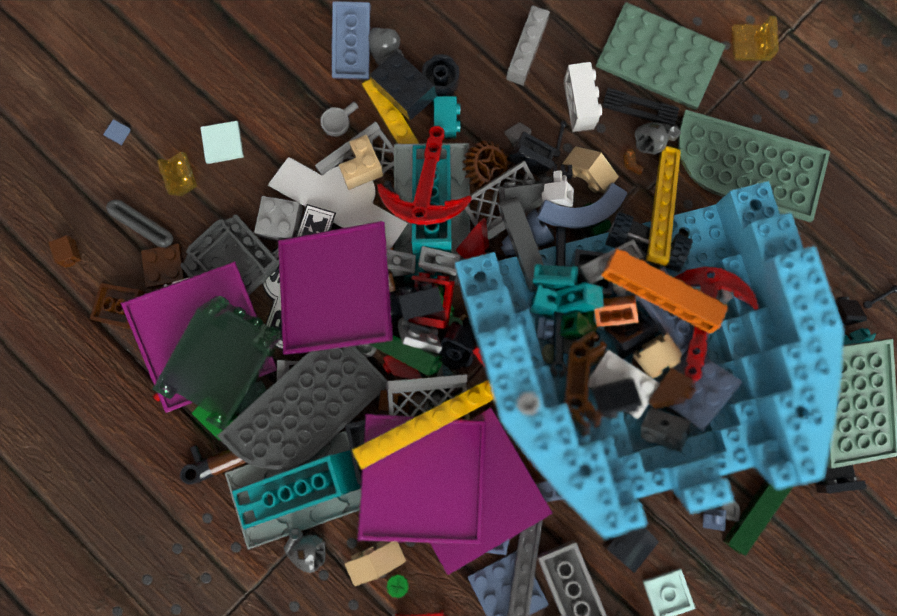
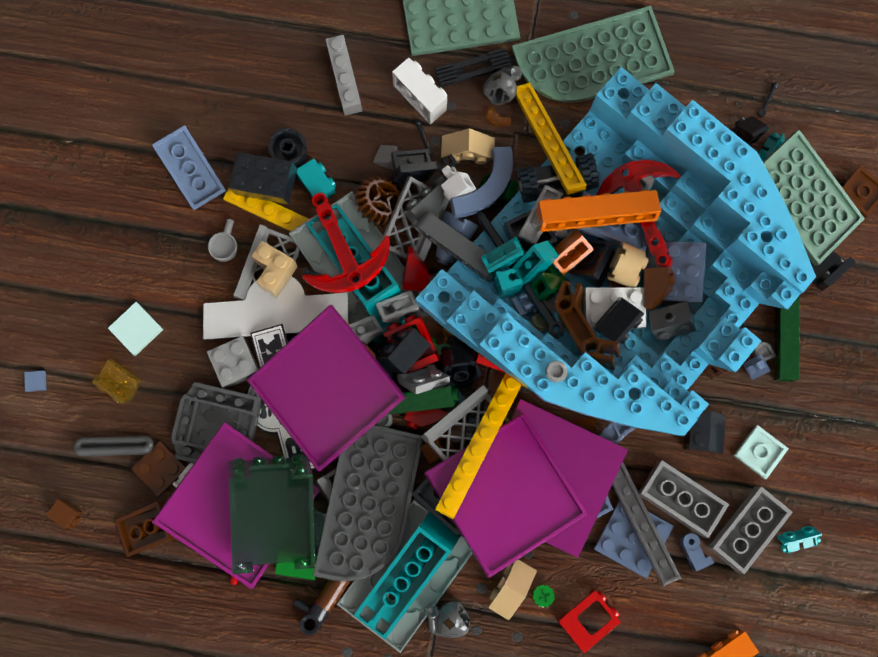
camera: 40 degrees left, 0 degrees up
(383, 44) = (220, 154): dark grey piece -> none

